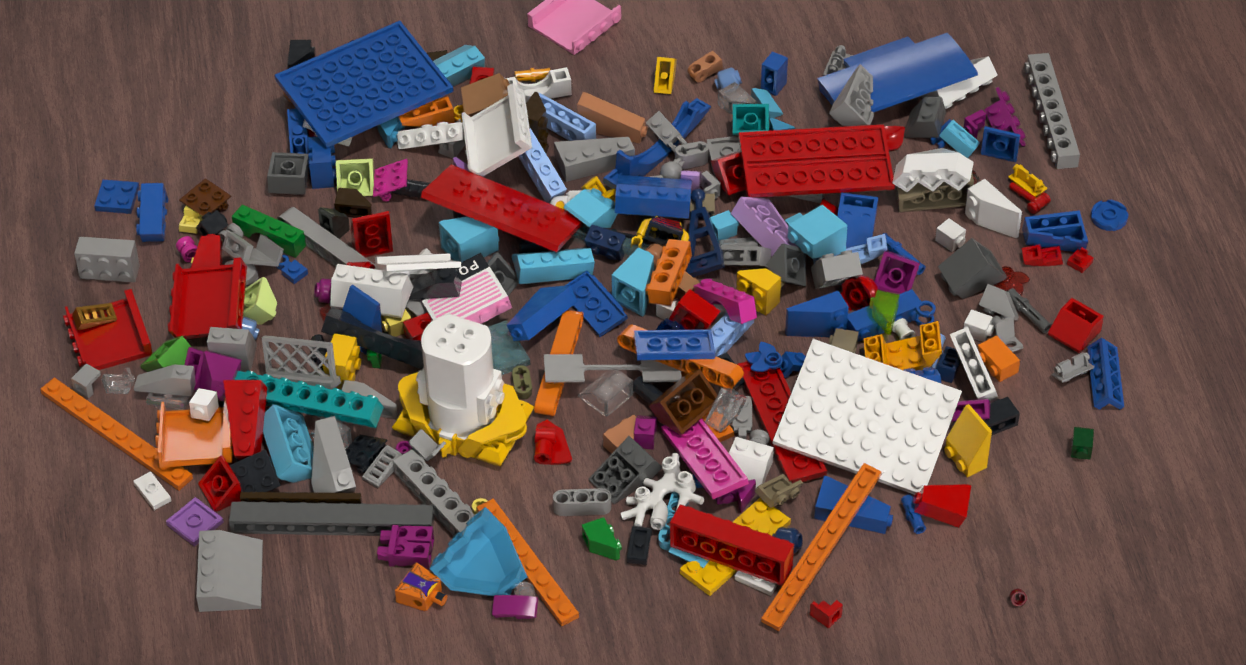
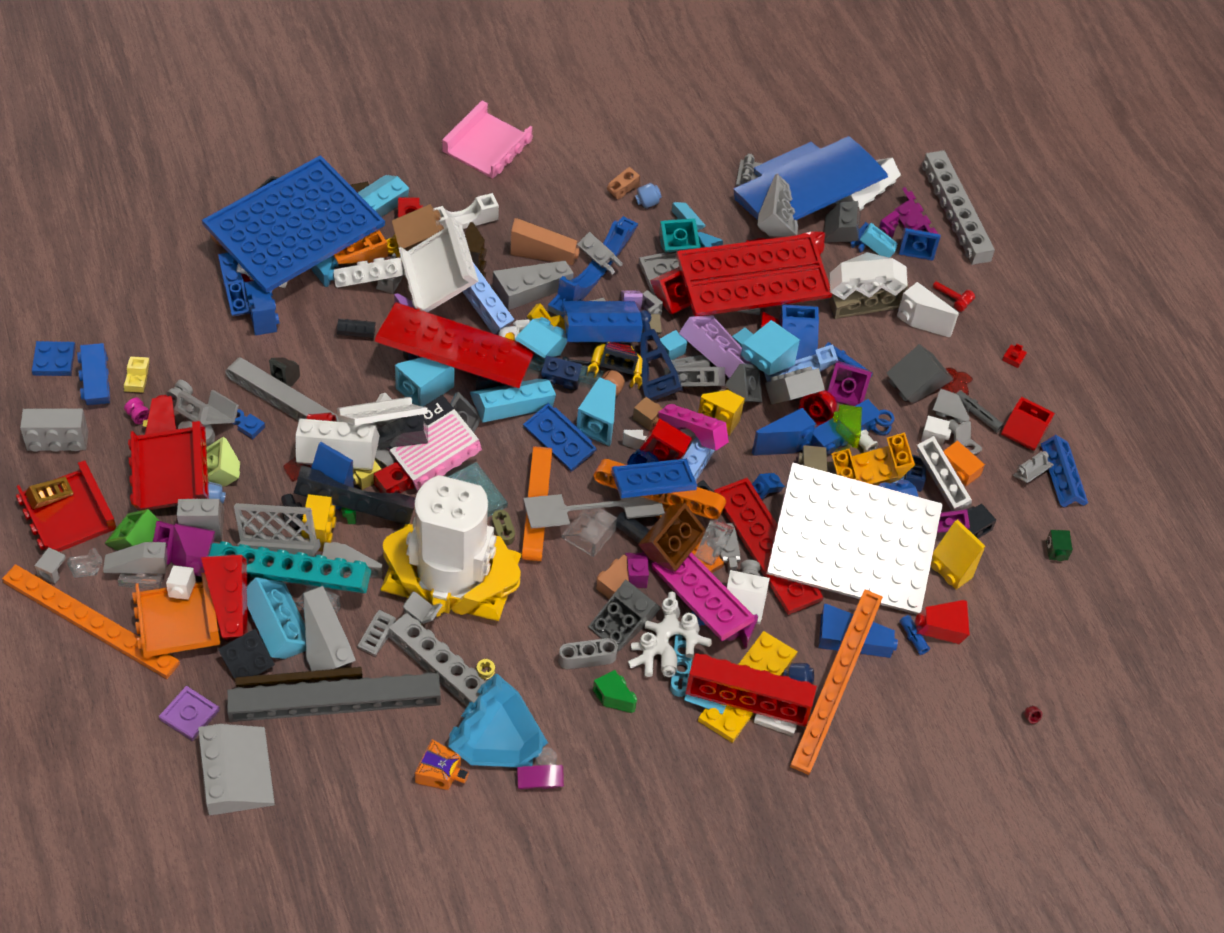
camera: 15 degrees left, 5 degrees up
(152, 490) = (138, 682): white plate -> none
(206, 198) = (148, 354): reddish brown hinge -> none
(212, 223) = (159, 382): black brick -> none
(220, 485) = (211, 671): red slope -> none
(281, 233) = (233, 387): green arch -> none
(288, 173) = (229, 321): dark grey slope -> none
(300, 52) = (221, 194): black slope -> none
(323, 291) = (286, 445): magenta head -> none
(352, 203) = (300, 349): dark brown slope -> none
(356, 175) = (298, 321): yellowish green slope -> none
(364, 451) = (356, 617): black hinge -> none
(372, 234) = (327, 382): red slope -> none
(389, 179) = (334, 320): dark pink hinge -> none
(403, 446) = (396, 608): magenta plate -> none
(407, 545) = (418, 720): magenta hips -> none
(531, 75) = (457, 201): light orange pin -> none
(536, 573) = (558, 740): orange plate -> none
(540, 311) = (511, 451): blue slope -> none
(551, 445) = (544, 592): red panel -> none
(567, 122) = (503, 250): light blue brick -> none
(639, 545) = (653, 695): black plate -> none
(664, 75) = (586, 194): yellow slope -> none
(669, 272) = (632, 400): orange brick -> none
(686, 157) = (623, 277): light grey beam -> none
(732, 95) = (656, 212): clear slope -> none
(765, 359) = (739, 482): blue plate -> none
(774, 73) = (692, 186): blue brick -> none
(778, 490) = (780, 623): dark tan bracket -> none
(826, 613) = (851, 750): red panel -> none
(950, 235) = (890, 339): white brick -> none
(1027, 181) = (953, 281): yellow hinge -> none
(1042, 257) = (979, 355): red slope -> none
(1056, 229) = (989, 329): blue wedge -> none
(1109, 215) = (1031, 308): blue tile -> none

